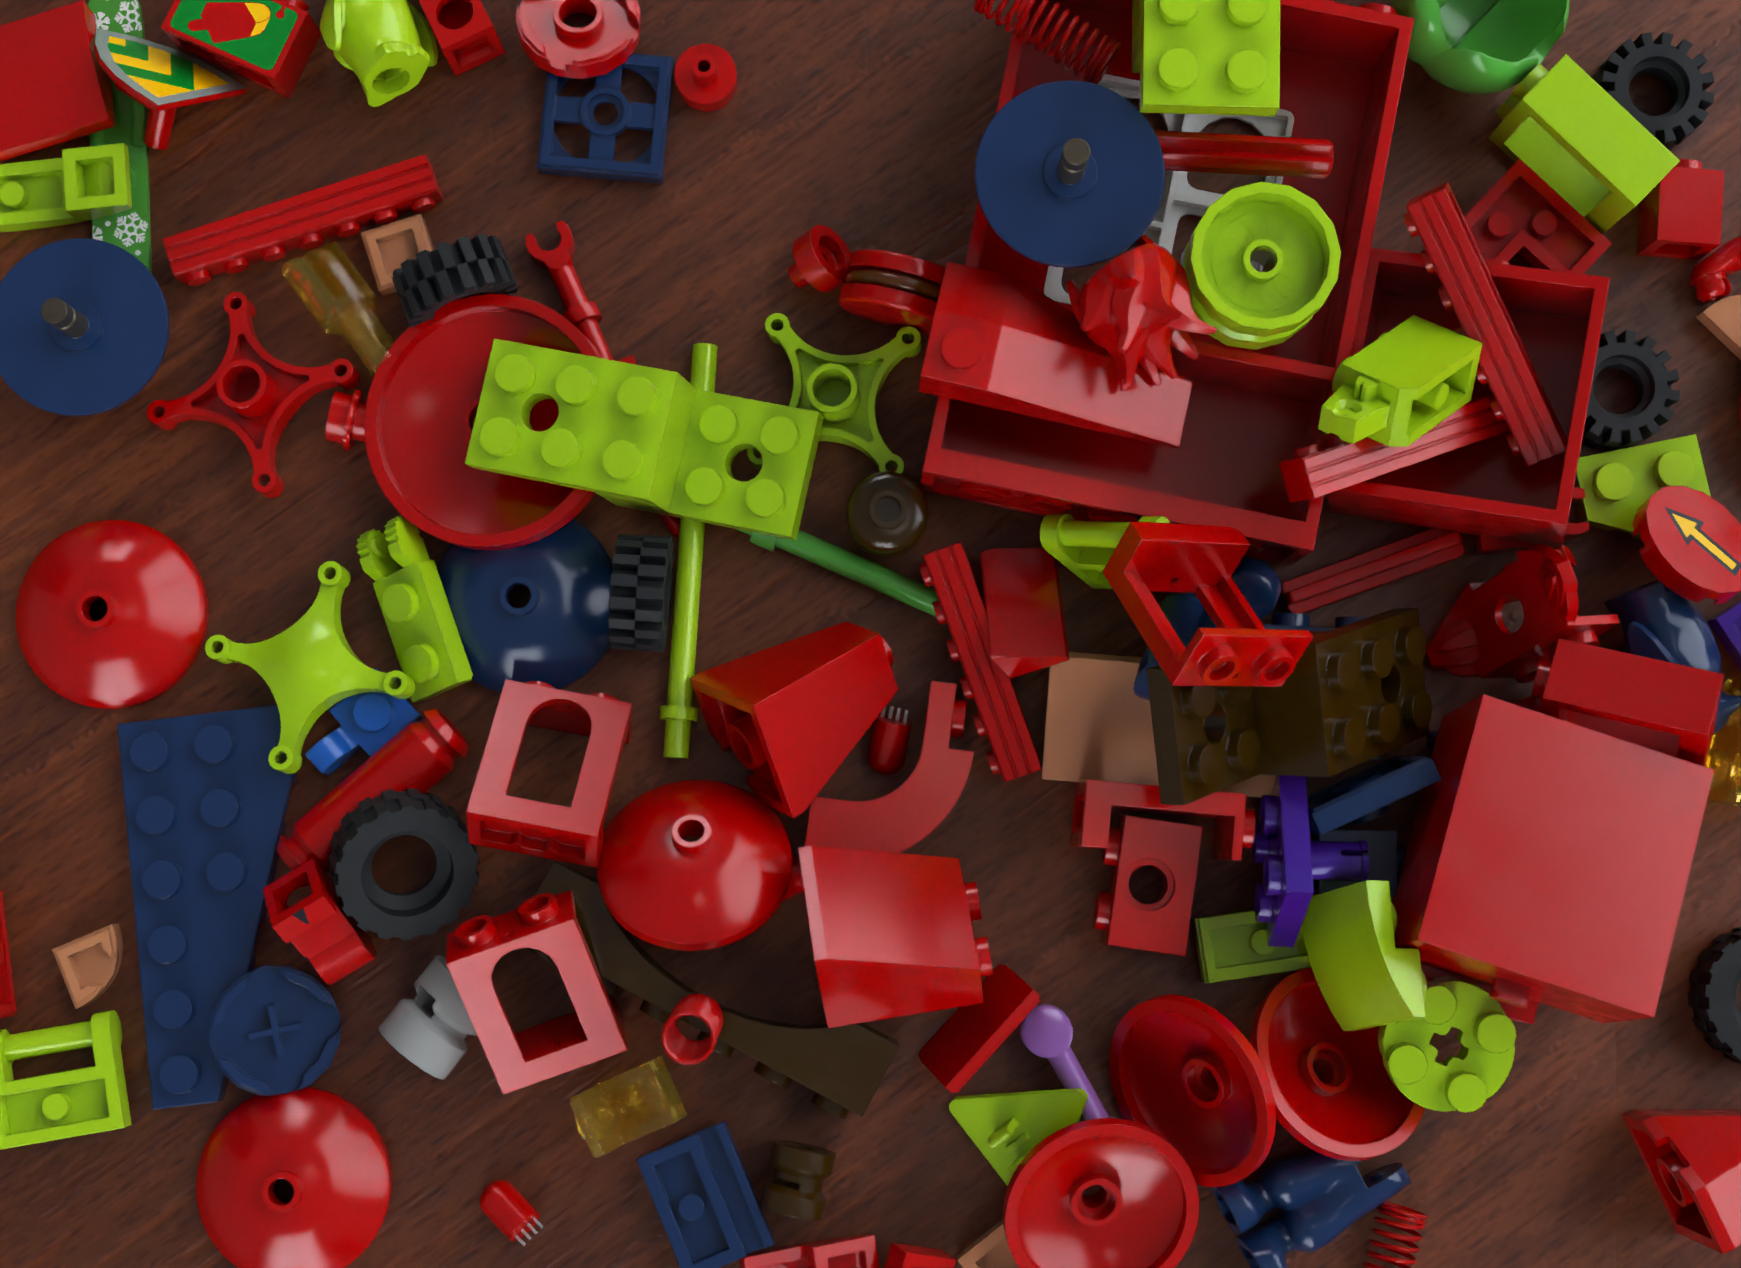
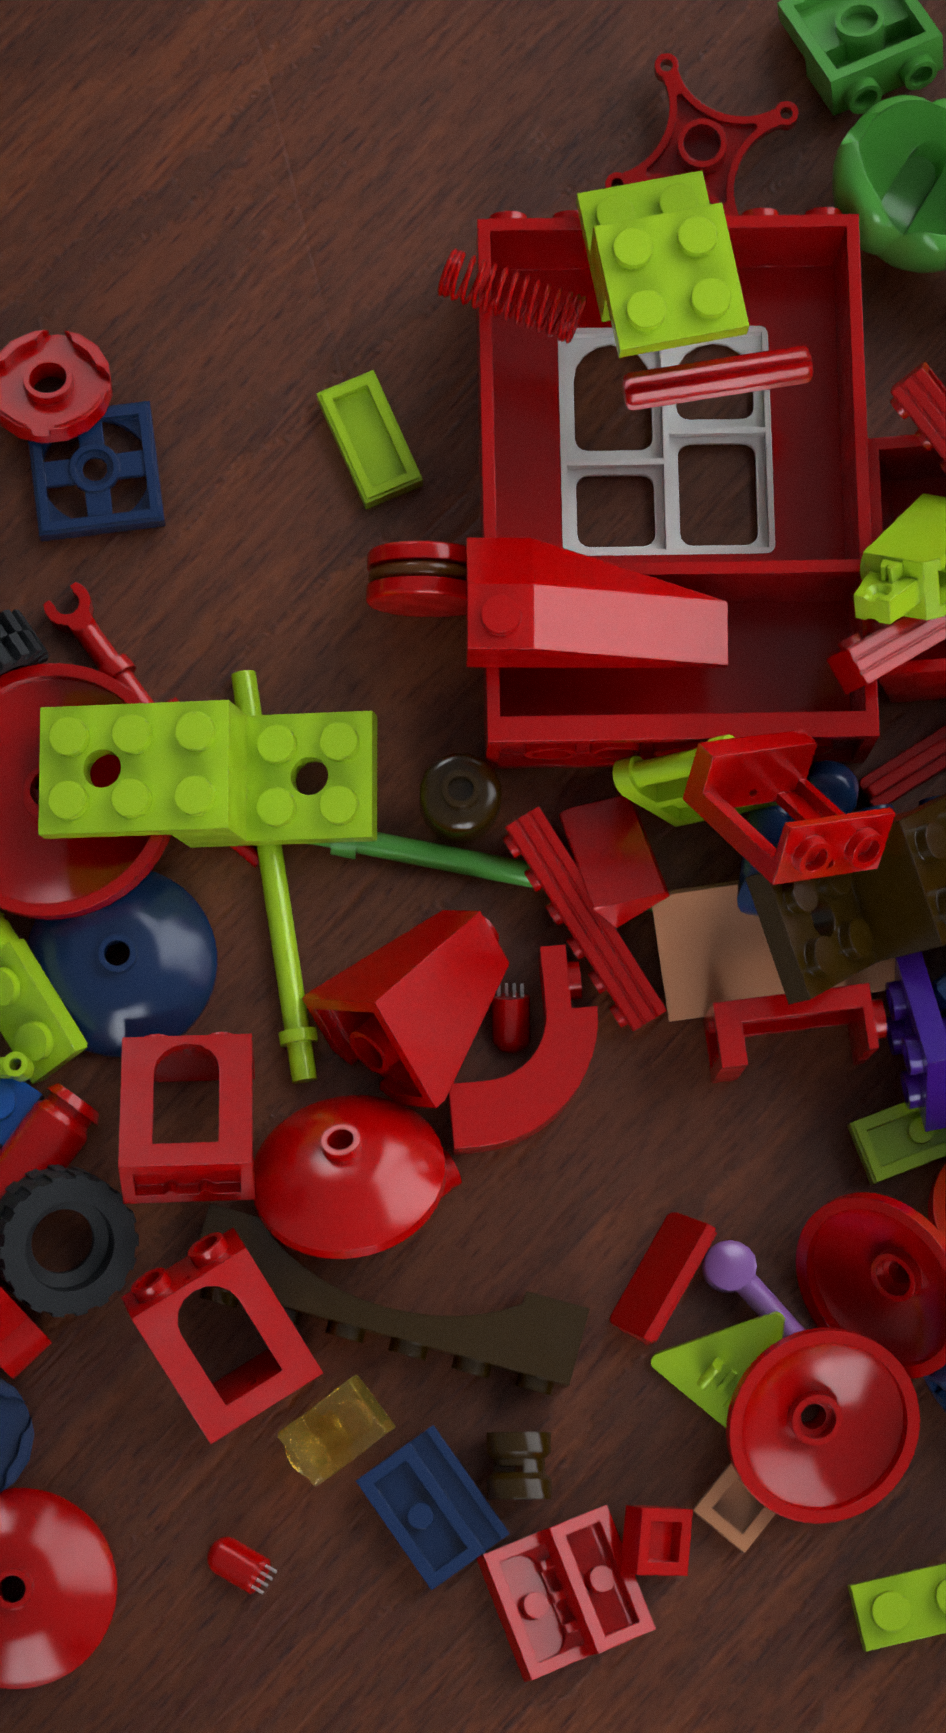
camera: 15 degrees left, 5 degrees down
(433, 1024) = (127, 1387): light grey wheel -> none
(641, 592) = (237, 924): black tyre -> none
(686, 1050) = (410, 1326): red piece -> none
(706, 77) = (188, 425): red tile -> none
(819, 259) = (337, 565): red tile -> none
(843, 388) = (388, 685): lime piece -> none
(879, 141) = (369, 439): none -> lime tile
(891, 933) = (557, 1199): red slope -> none
(1069, 174) = (565, 429): dark blue piece -> none
(1139, 310) = (660, 544): red hair -> none
(1165, 921) = (813, 1064): red brick -> none
(1284, 235) = (769, 440): lime wheel -> none

